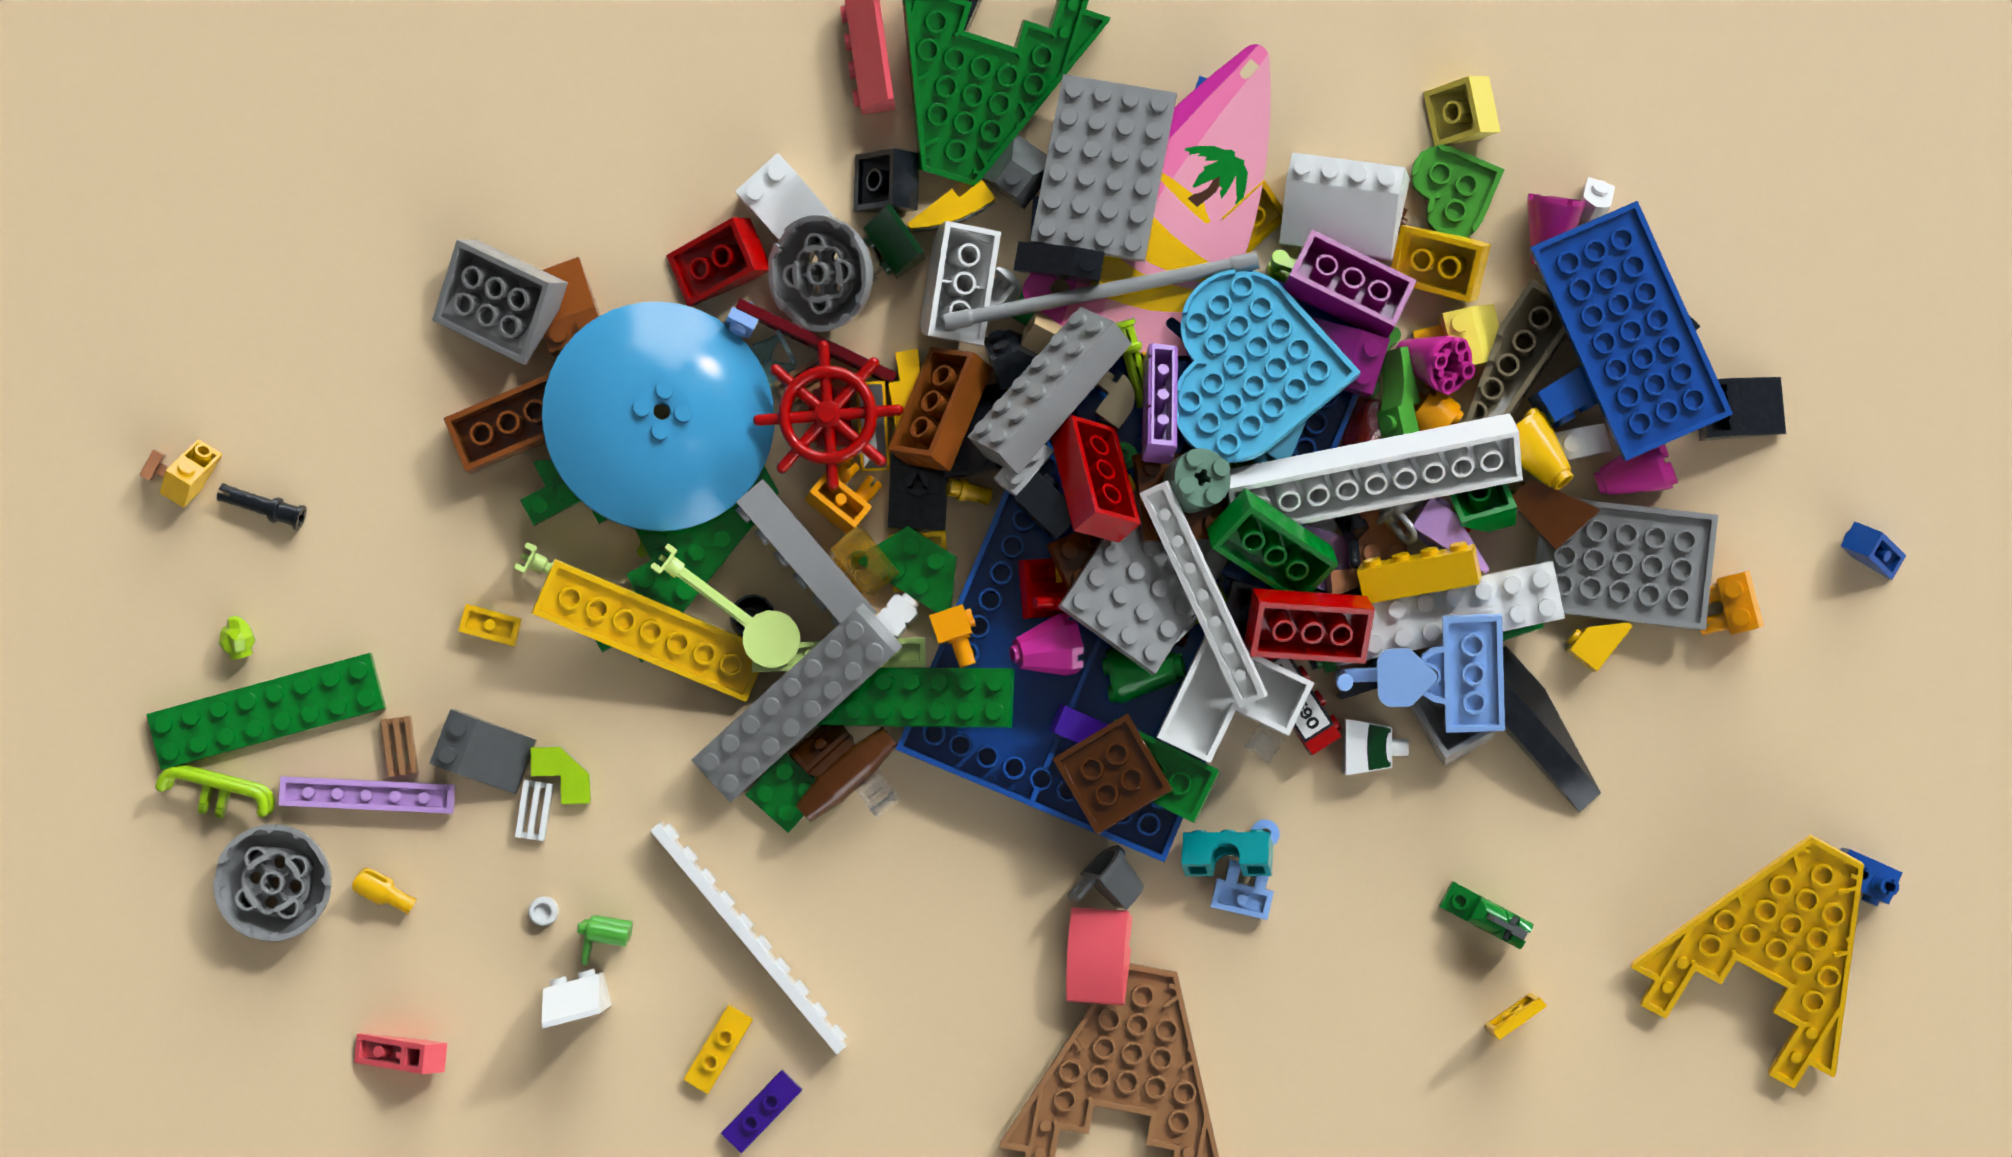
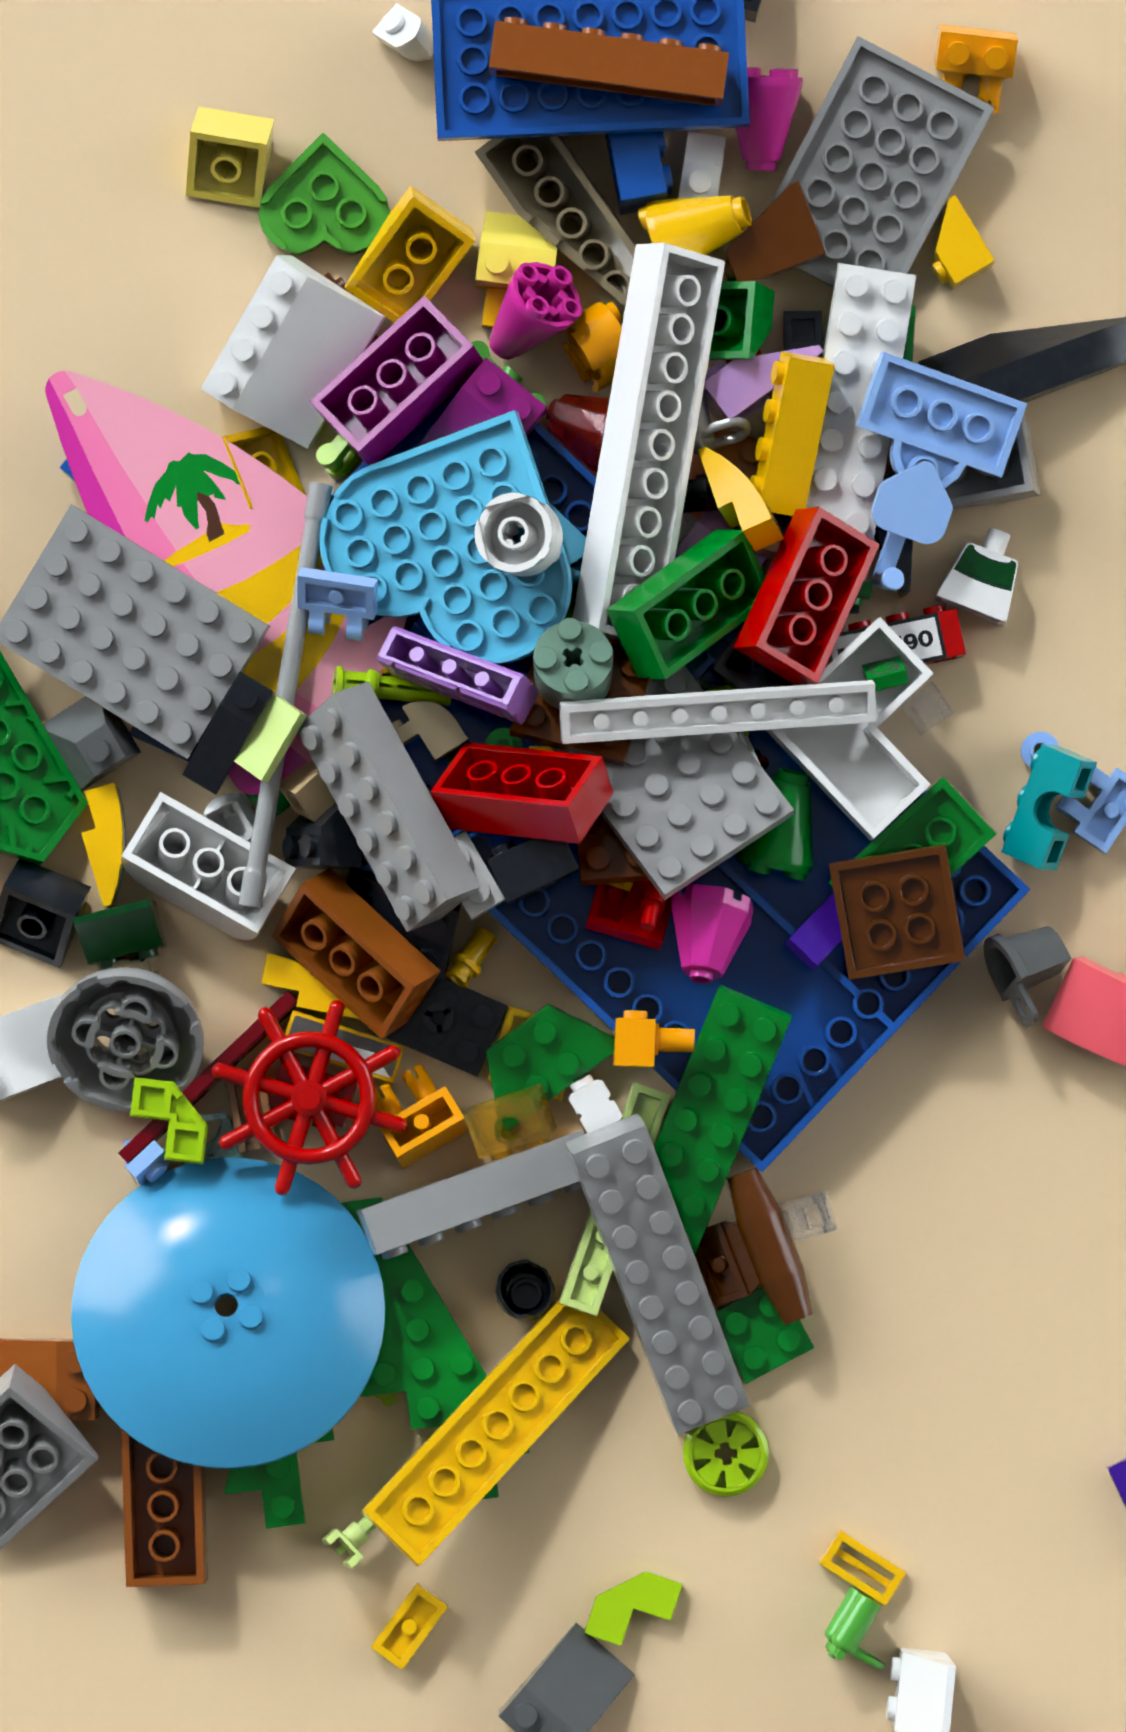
camera: 70 degrees left, 0 degrees up
(534, 807) = (656, 1671): white tile -> none
(543, 911) = (796, 1694): white tile -> none
(637, 921) = (834, 1549): none -> yellow tile
(675, 792) = (744, 1470): none -> lime wheel
(718, 261) = (58, 1162): red slope -> none
(718, 1048) = (1051, 1537): yellow plate -> none
(757, 945) = (941, 1439): white plate -> none
(768, 637) = (560, 1278): yellowish green piece -> none
(774, 338) = (186, 1127): none -> lime tile
(1066, 291) = (270, 738): none -> yellowish green tile
(1185, 300) = (339, 594): none -> light blue plate
(1276, 702) = (886, 673): none -> green tile
(1280, 392) = (500, 522): none -> white brick
(1357, 554) = (740, 500): none -> yellow slope
(1399, 394) = (559, 372): bright green slope -> none
(1496, 555) = (802, 329): none -> black plate
(1551, 216) = (407, 97): dark pink cone -> none
(1630, 344) = (608, 62): none -> dark orange brick

